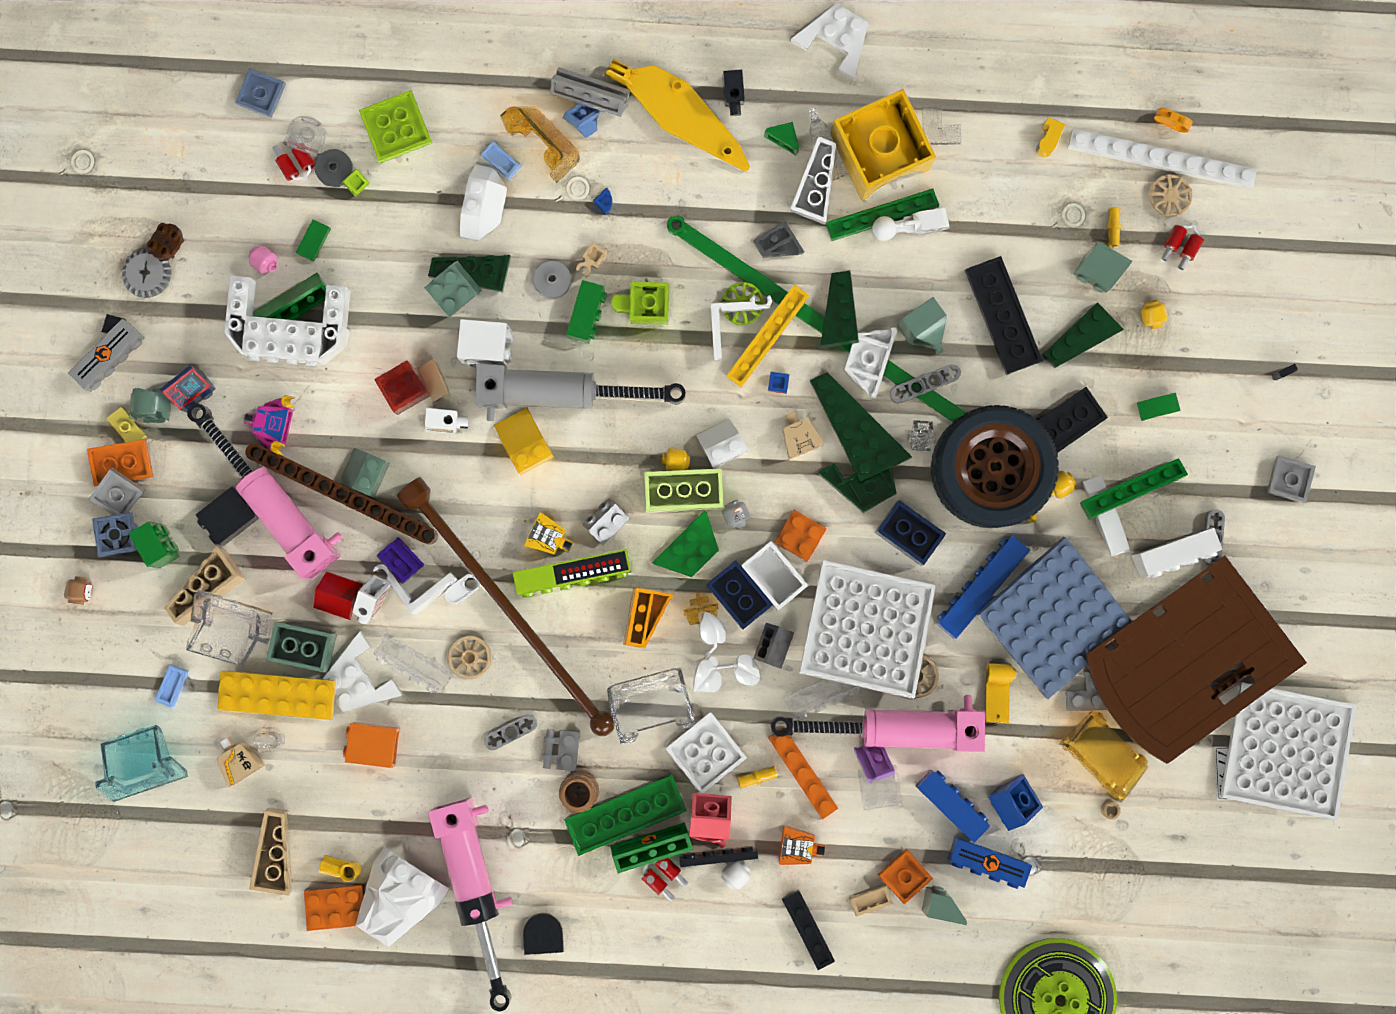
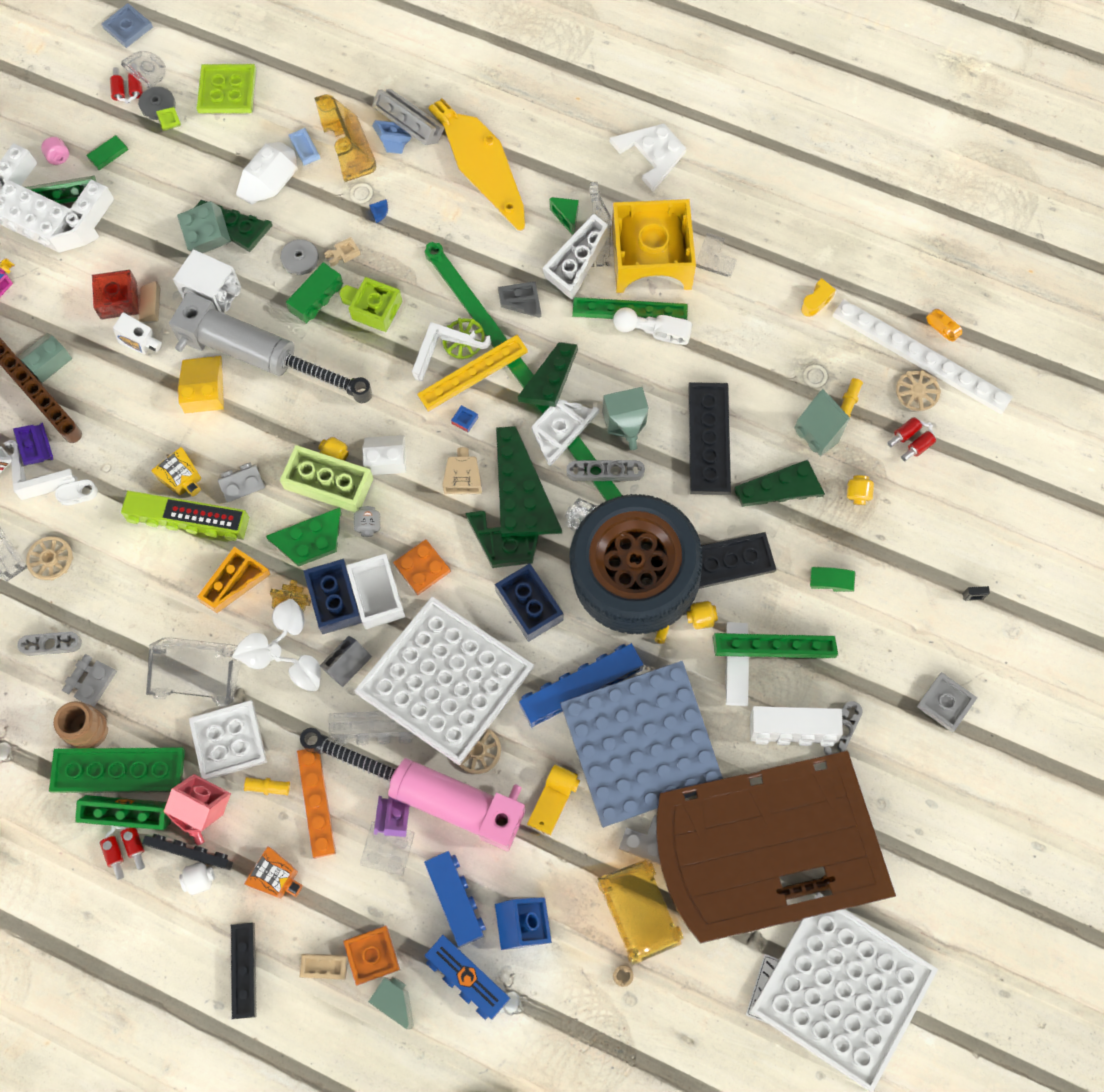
camera: 25 degrees right, 15 degrees down
(416, 496) = (78, 389): reddish brown piece -> none
(734, 84) = (537, 157): black torso -> none

